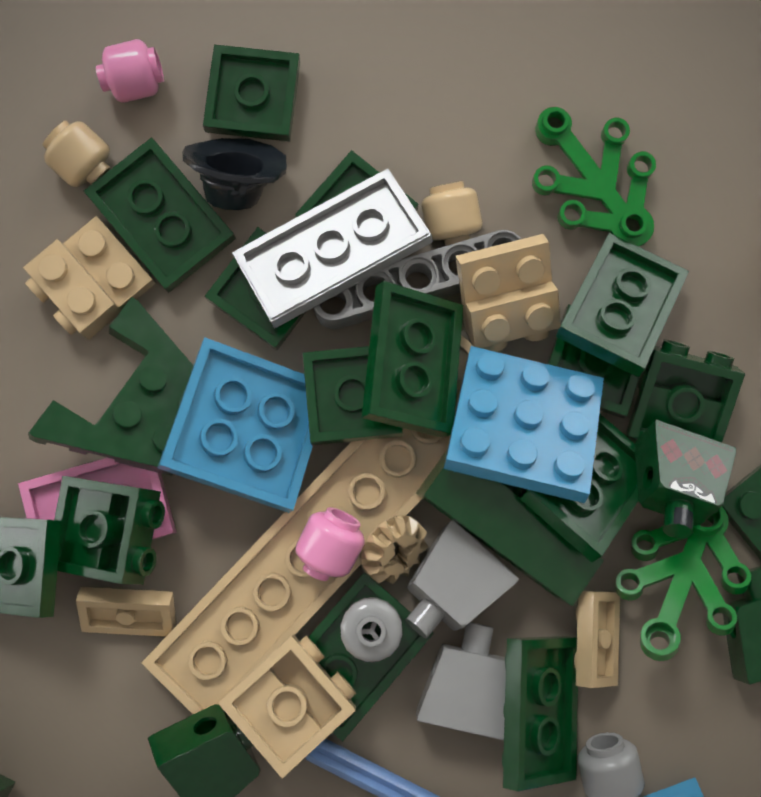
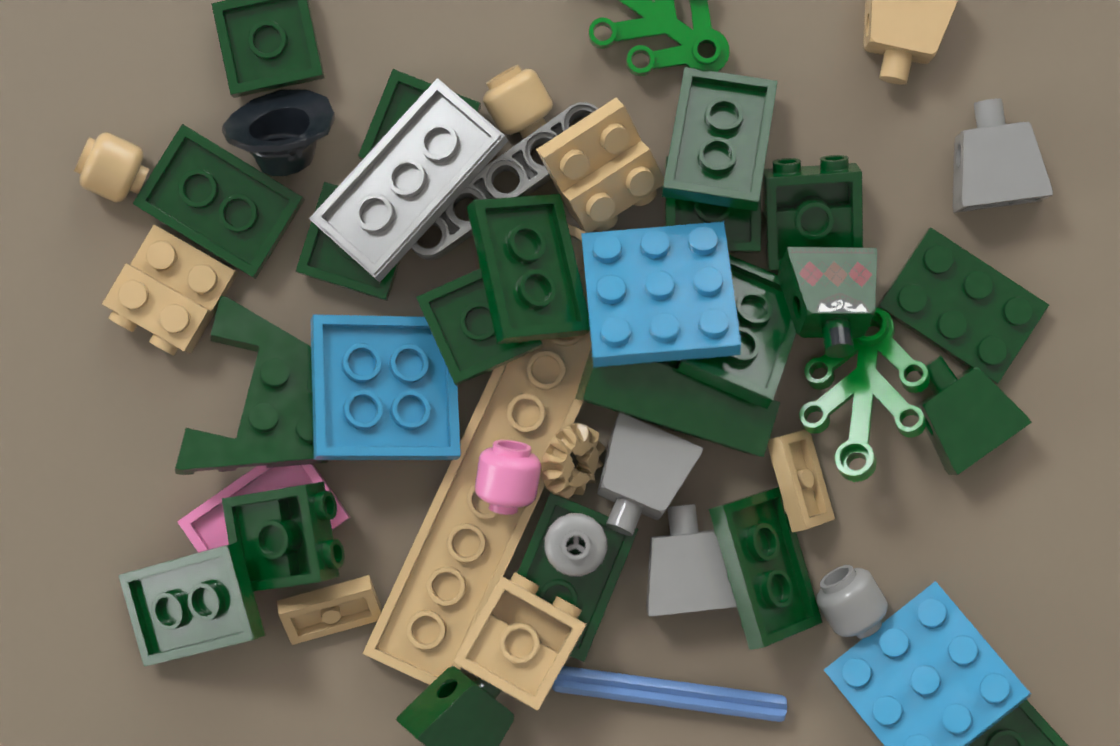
camera: 15 degrees left, 5 degrees up
(130, 71) = (135, 61): bright pink head -> none

